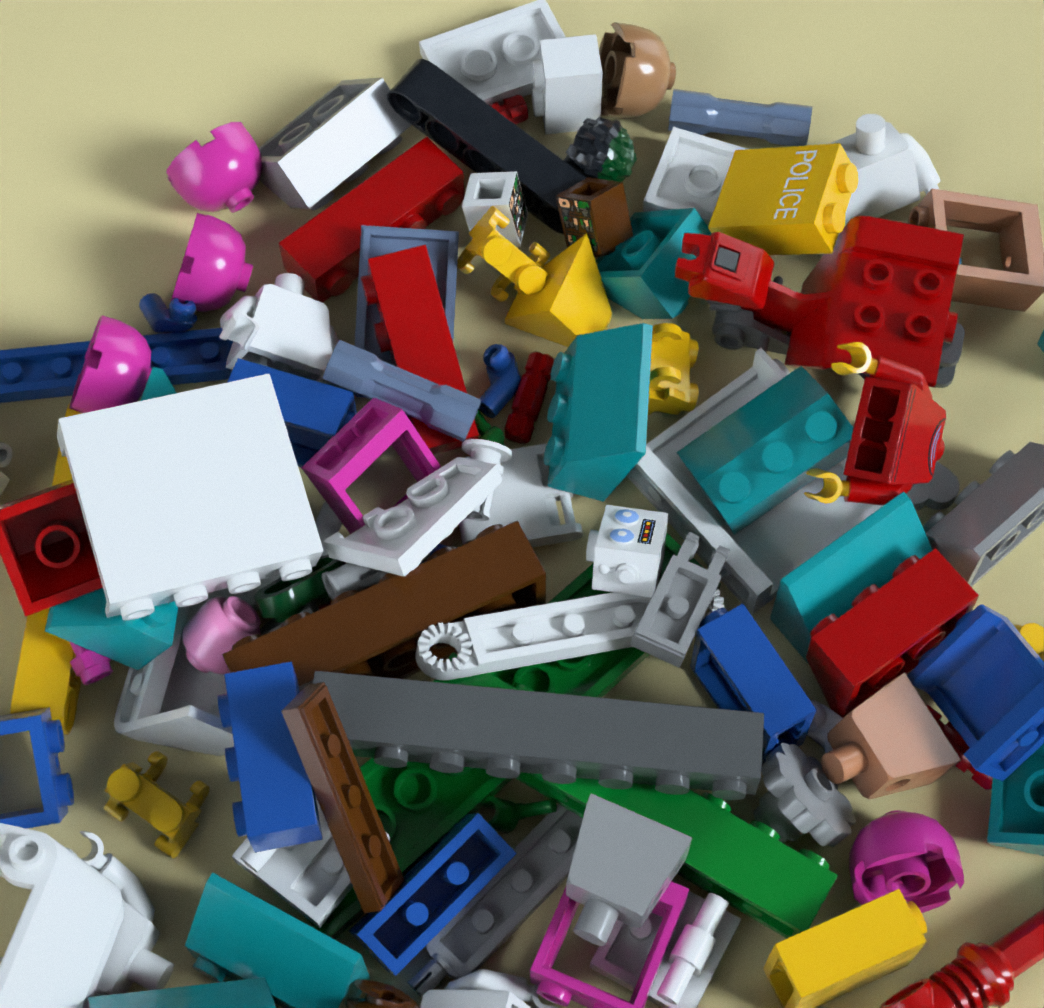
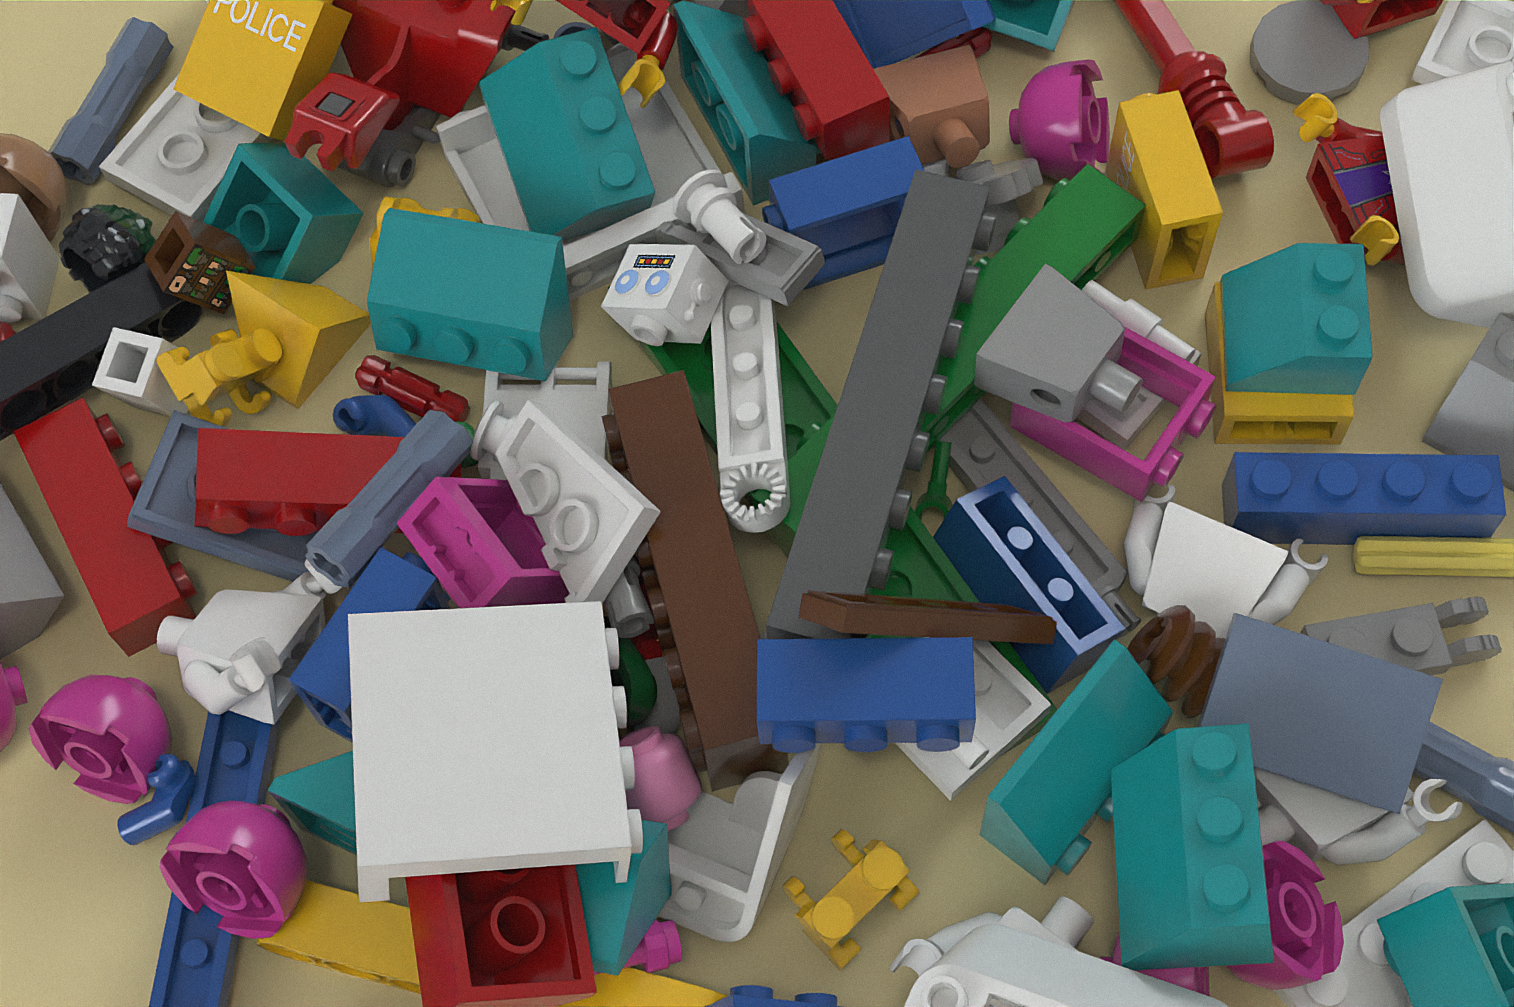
camera: 75 degrees left, 0 degrees up
(697, 565) = (713, 210): none -> white pin

